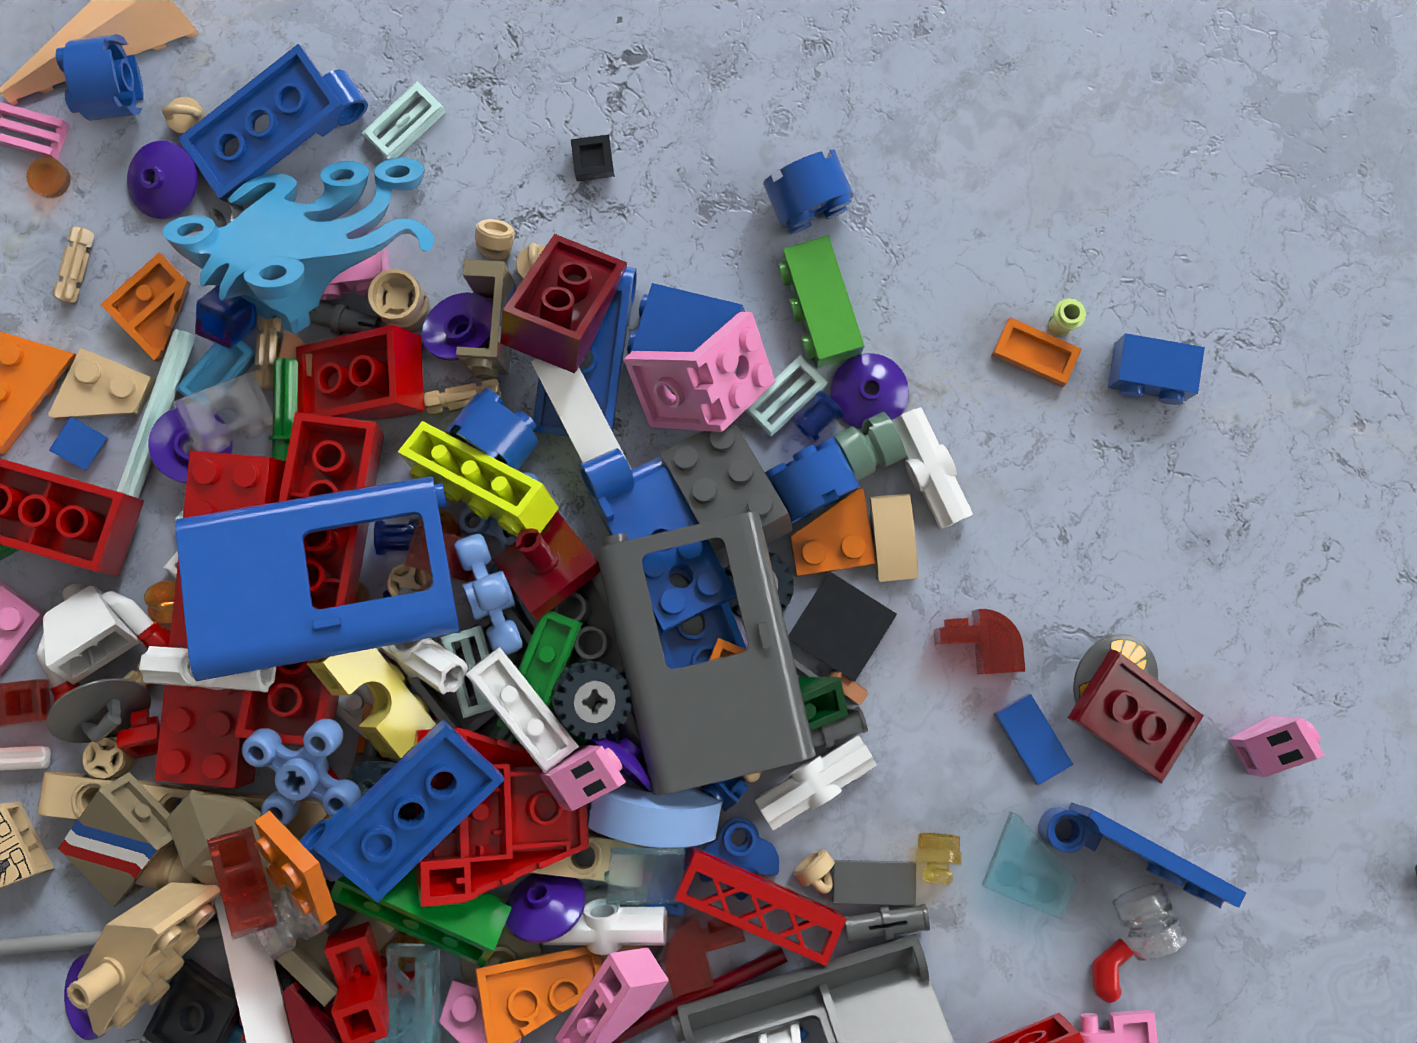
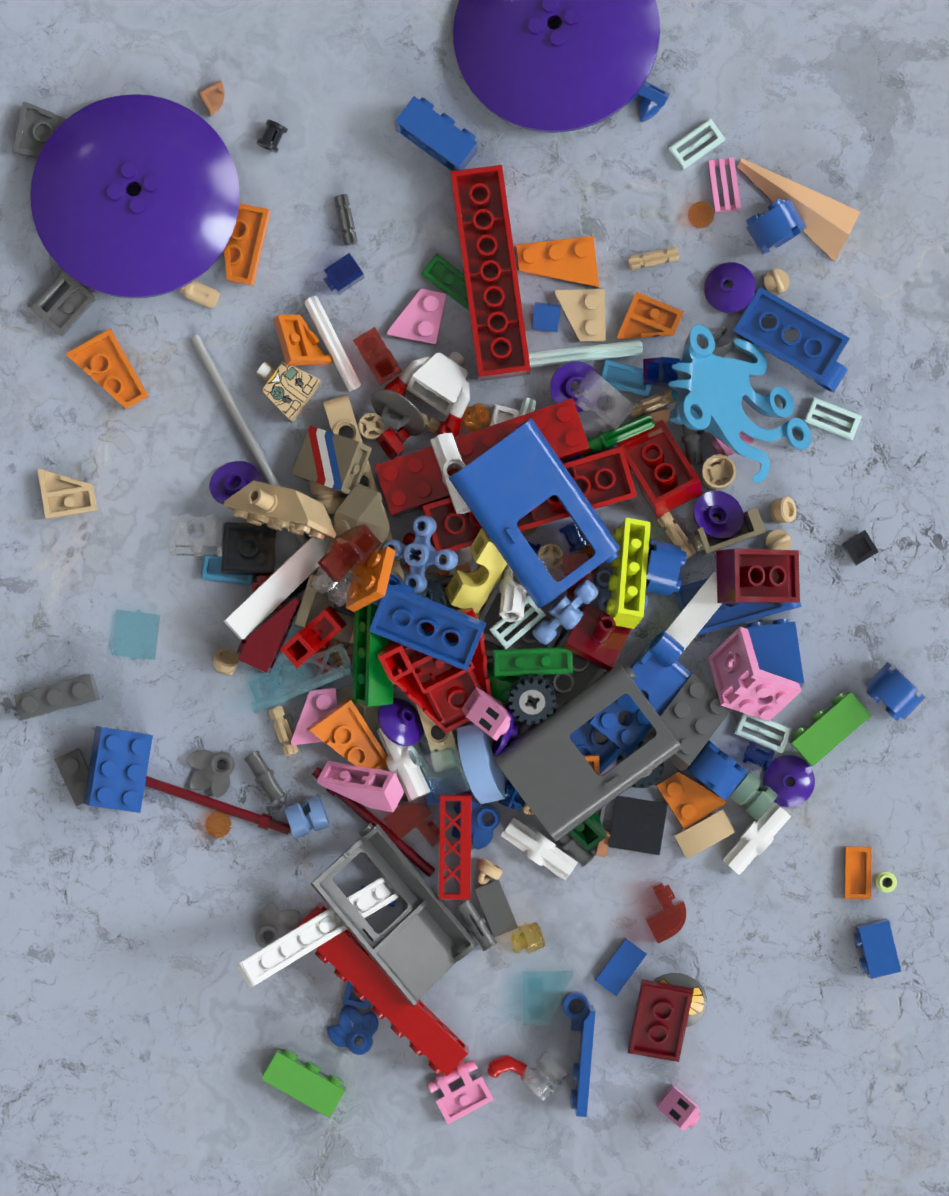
camera: 60 degrees right, 5 degrees up
(522, 709) = (509, 662): white tile -> none

